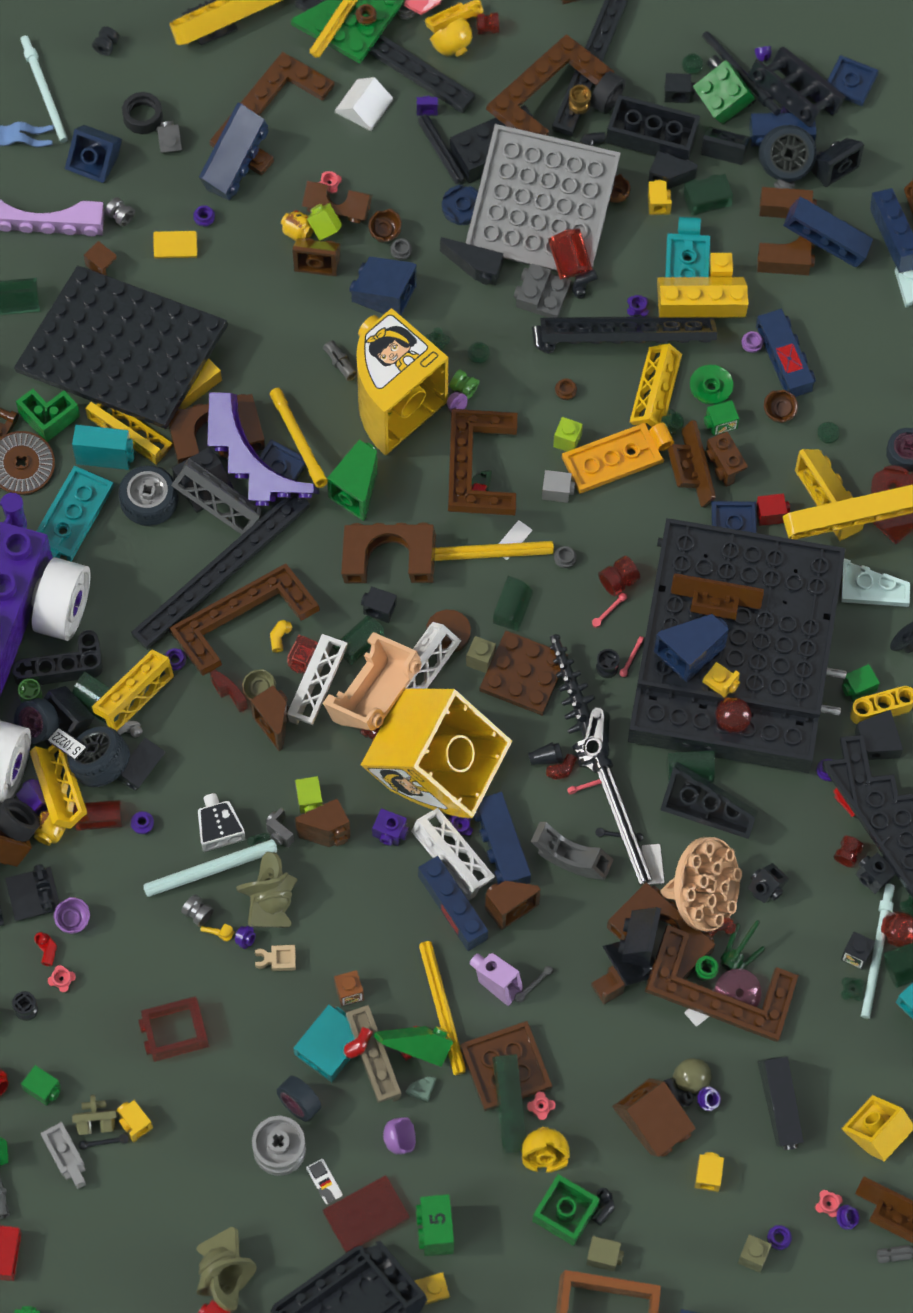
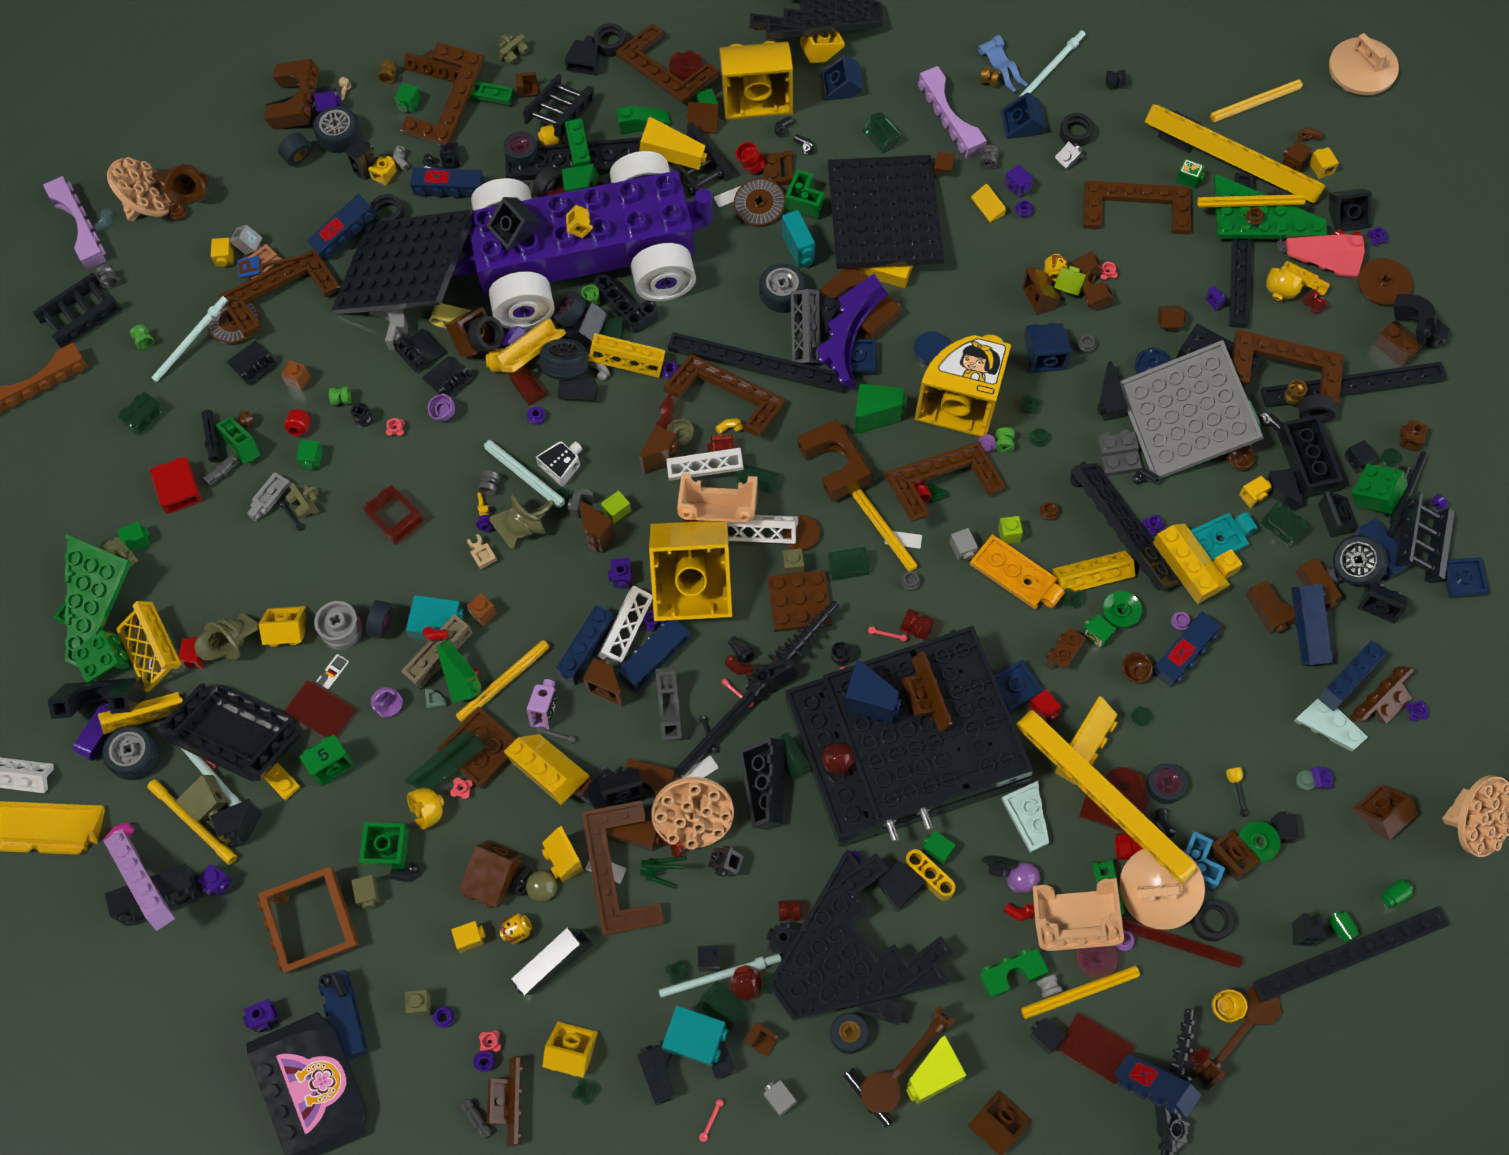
camera: 65 degrees right, 0 degrees up
(18, 154) = (986, 76): none -> pearl gold wheel
(48, 946) = (414, 406): red arm -> none
(66, 743) = (561, 334): white sticker -> none
(74, 510) = (742, 251): teal hinge -> none
(134, 1120) = (313, 525): yellow brick -> none
(140, 444) = (821, 249): yellow fence -> none
(171, 200) = (1018, 180): none -> dark purple brick
(234, 152) = (1081, 193): slope -> none
(241, 1205) = (283, 626): none -> yellow slope
(268, 42) = (1190, 173): none -> green brick
(312, 393) = (929, 345): none -> dark blue tile
(313, 468) = (863, 374): yellow piece -> none
(365, 103) = (1188, 260): white slope -> none
(379, 604) = (791, 475): black brick -> none
(385, 225) = (1096, 322): reddish brown hair -> none
(423, 156) = (1171, 317): none -> reddish brown brick
(441, 149) = (1188, 327): black axle -> none
(570, 253) = (1159, 452): clear red brick -> none
(572, 1004) = (546, 766): none -> yellow slope
(675, 1035) = (562, 855): none -> yellow slope
(683, 31) = (1413, 435): none -> reddish brown brick
(691, 465) = (1042, 628): reddish brown bracket -> none
(709, 964) = (624, 846): green cone -> none
(713, 1101) = (528, 911): dark purple plate -> none
(722, 680) = (860, 734): yellow bracket -> none
(726, 1121) = (515, 928): none -> yellow head
(740, 978) = (634, 881): clear pink dish -> none

